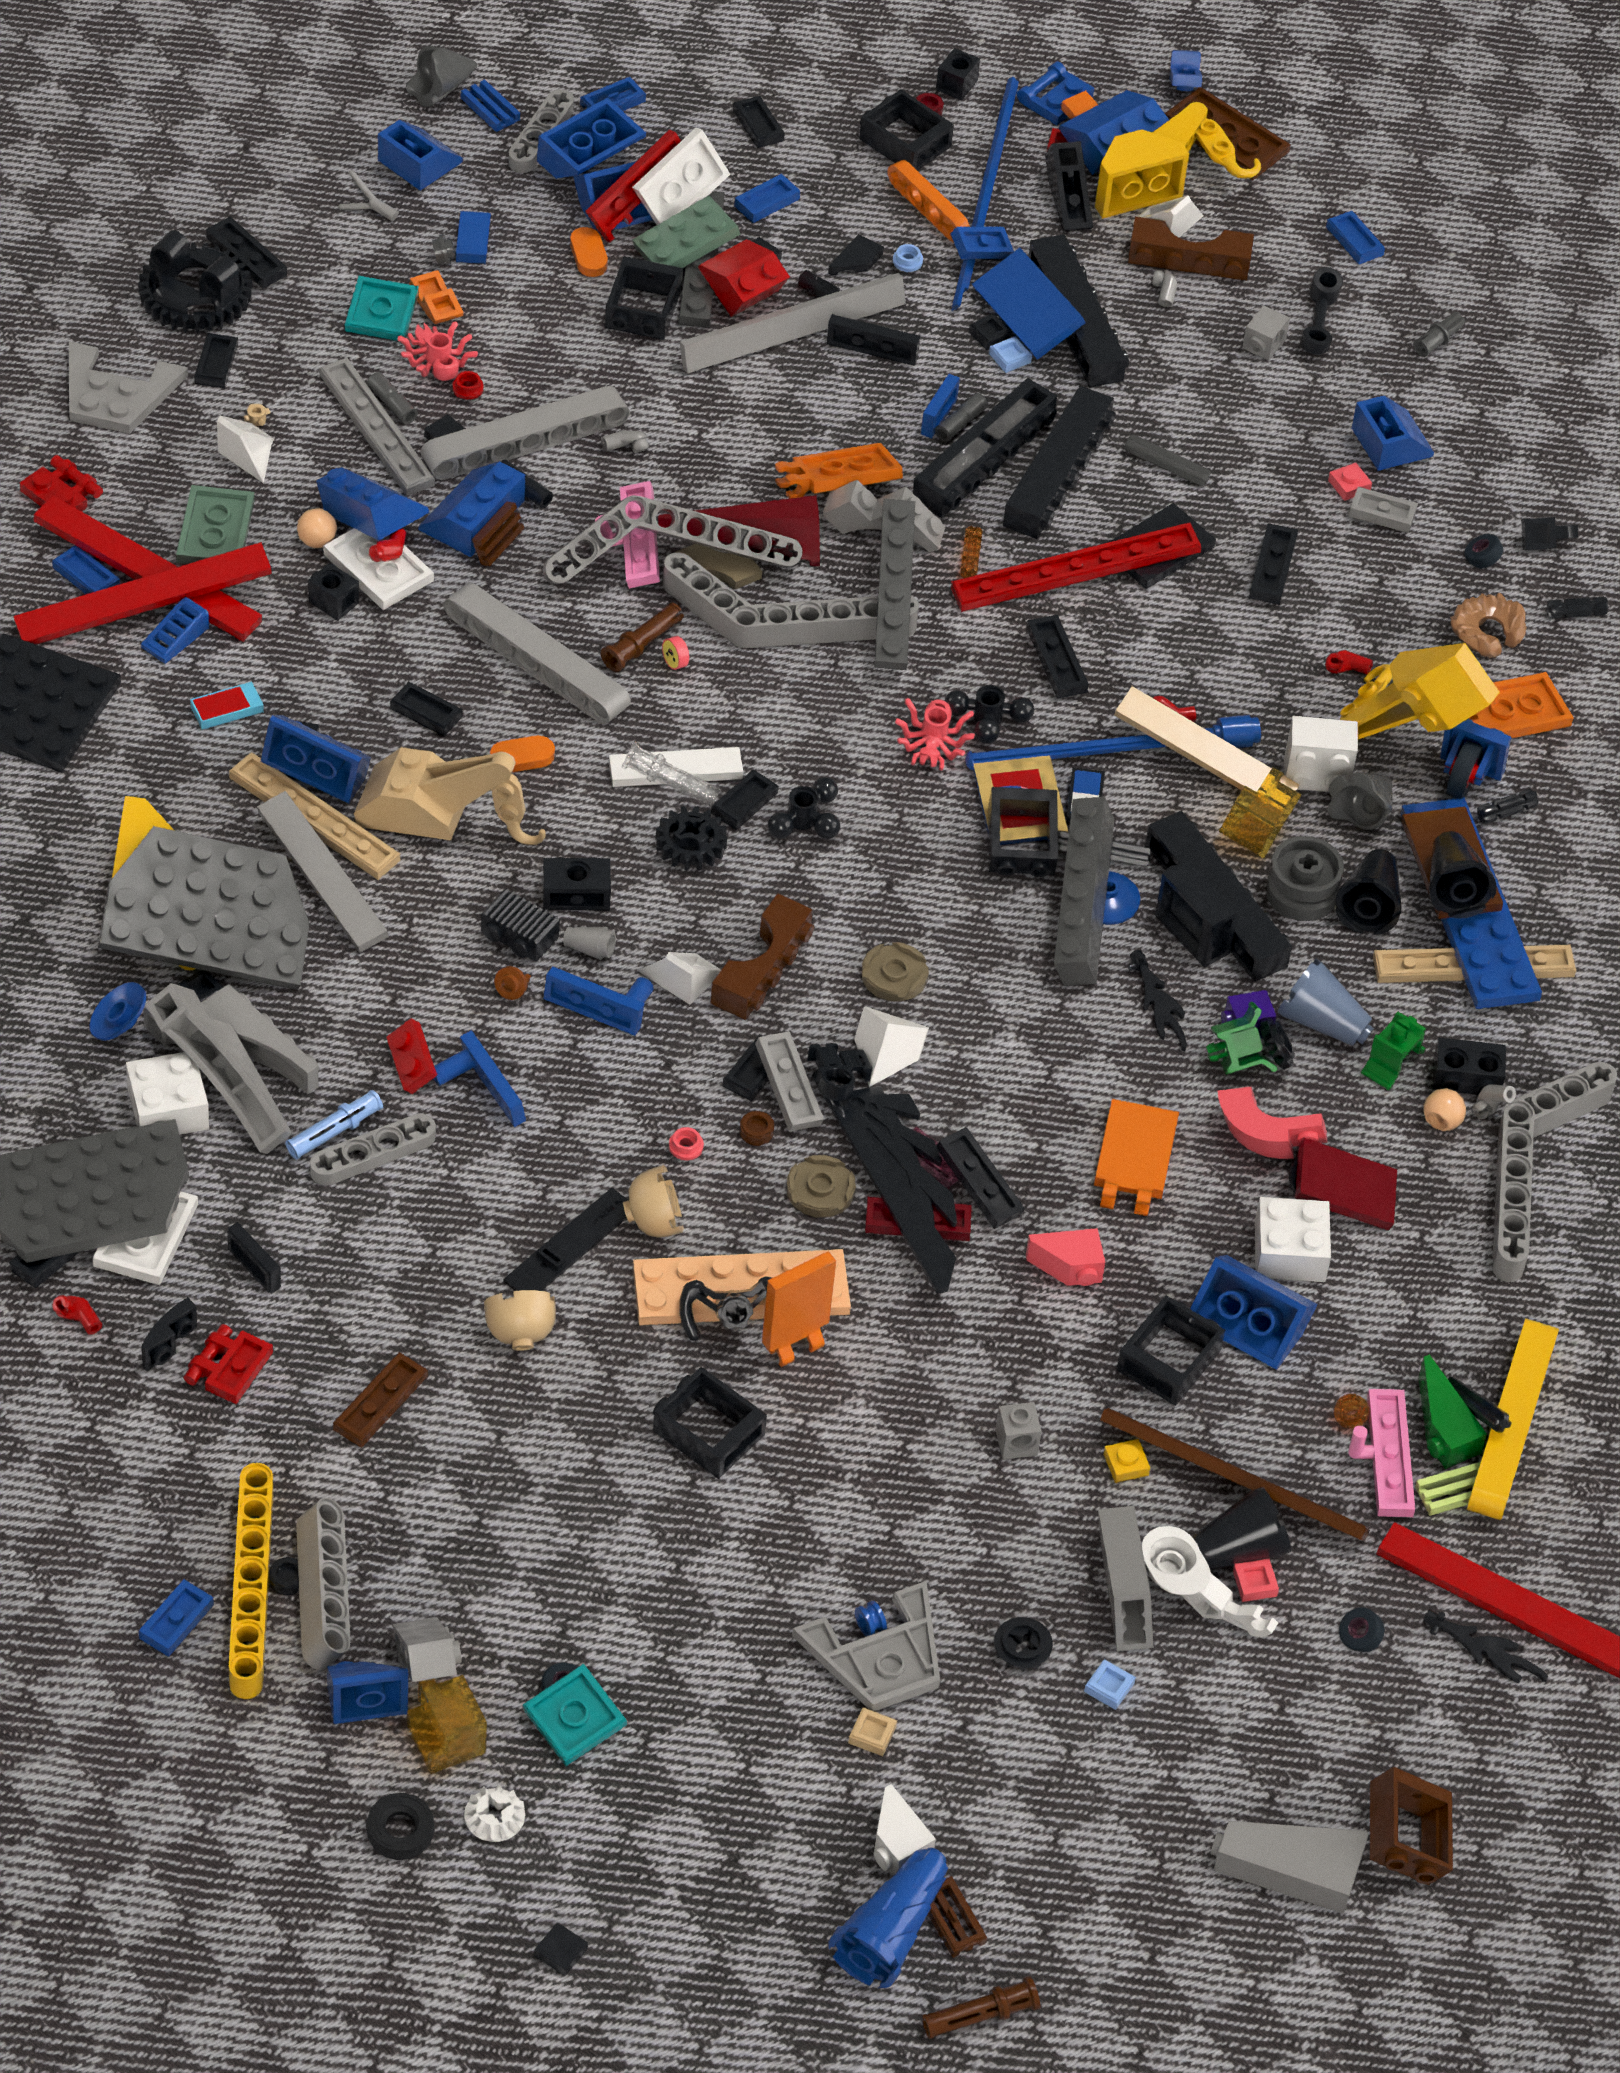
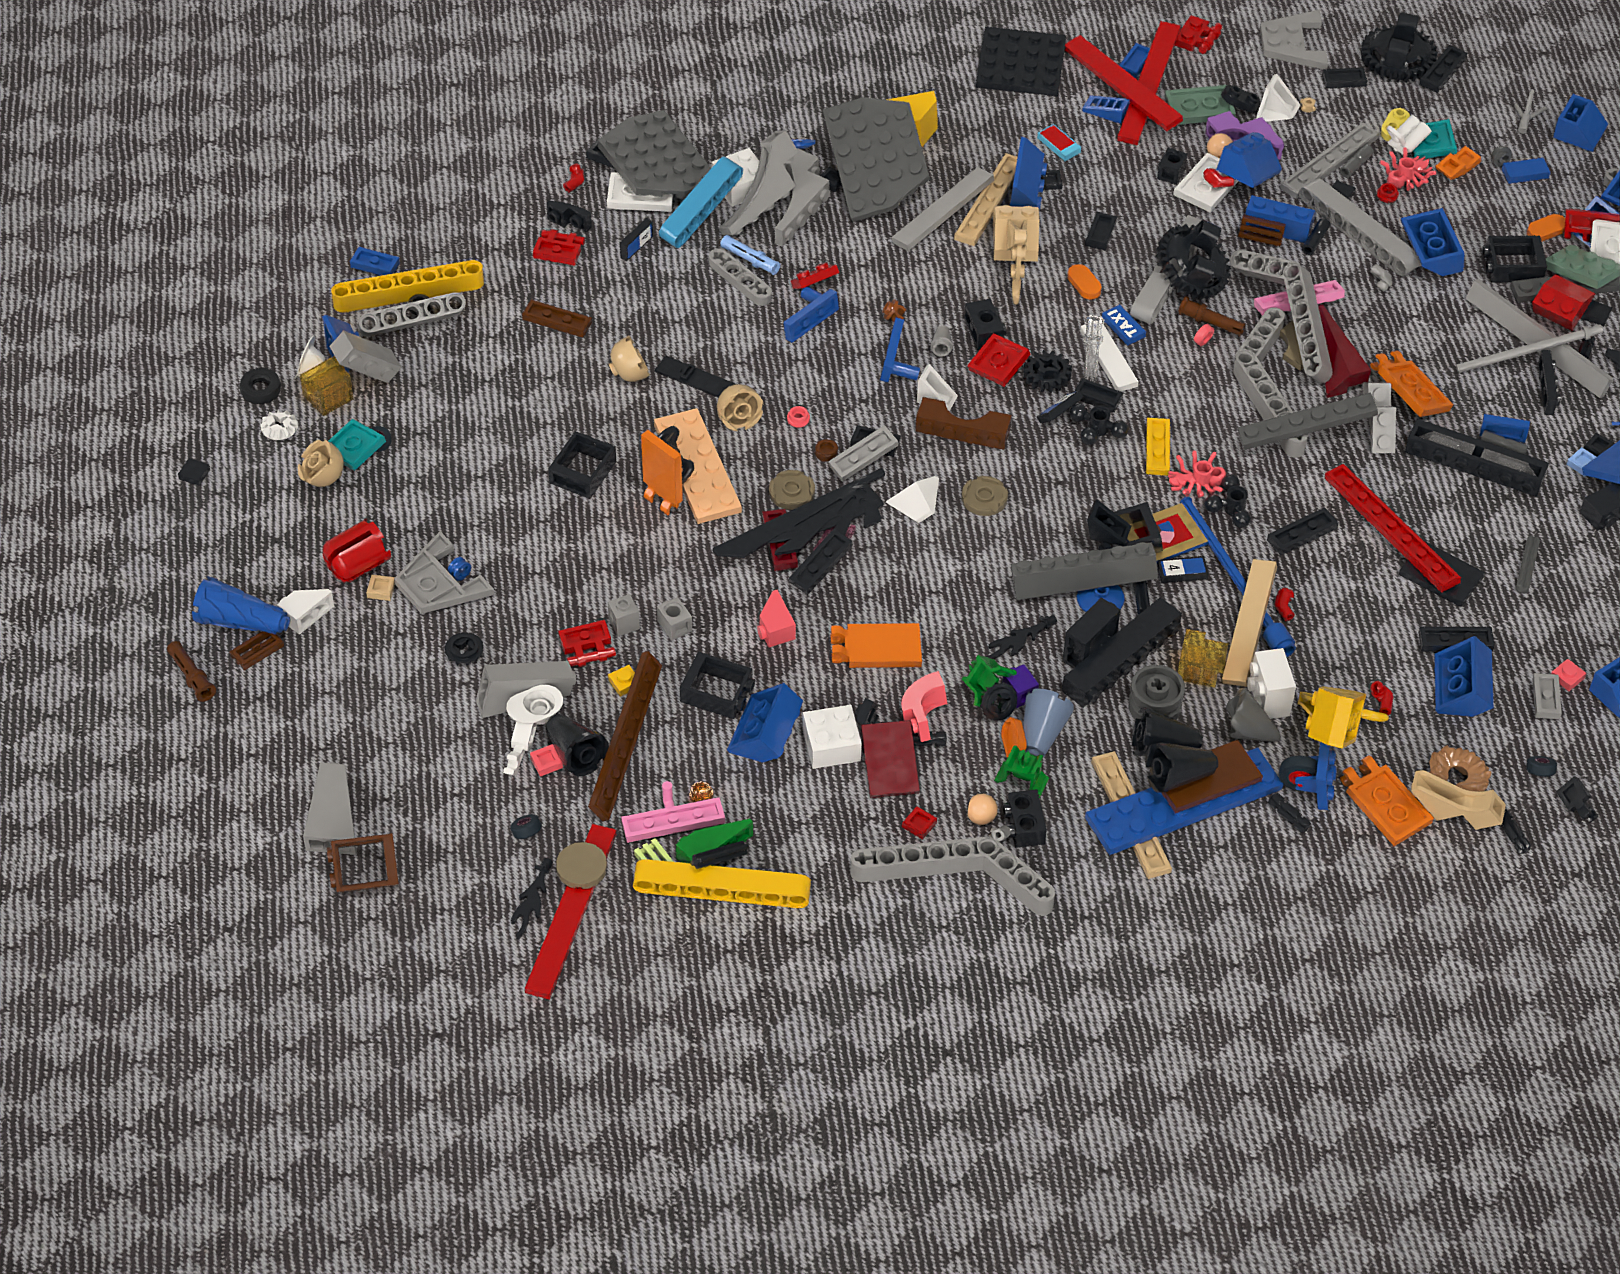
camera: 80 degrees right, 0 degrees up
(223, 1149) = (701, 202): none -> dark azure beam
(228, 477) = (1241, 99): none -> black plate
(283, 508) = (1229, 125): none -> medium lavender arch
(333, 337) = (1394, 119): none -> light yellow plate
(376, 325) = (1408, 135): none -> white piece
(388, 1739) = (310, 358): none -> white piece
(520, 925) = (937, 304): black brick -> none
(550, 607) = (1198, 270): none -> black piece
(595, 358) = (1435, 242): none -> blue slope
(620, 734) = (1123, 325): none -> blue tile
(621, 1757) = (321, 464): none -> tan cylinder
(657, 883) = (998, 359): none -> red plate
(763, 842) = (1060, 407): none -> black tile
(816, 1739) = (355, 551): none -> red cylinder
(827, 267) = (1530, 348): none -> light grey bar
(839, 1069) = (885, 470): black piece -> none
(858, 762) = (1157, 446): none -> yellow tile
(971, 551) = (1378, 471): clear orange axle -> none
(1025, 840) = (1106, 525): none -> black slope
(1042, 1362) = (674, 618): none -> light grey brick
(1042, 1489) = (586, 637): none -> red plate
(1059, 462) = (1488, 501): black brick -> none
(1109, 1684) = (447, 699): light blue tile -> none
(1273, 1183) = (866, 712): none -> black plate
(1339, 1045) = (1013, 734): none -> orange tile
(1341, 577) = (1464, 679): none -> blue slope
(1444, 1185) = (919, 822): none -> red tile
(1454, 1570) = (581, 865): none -> dark tan tile
(1534, 643) = (1449, 801): none -> tan arch

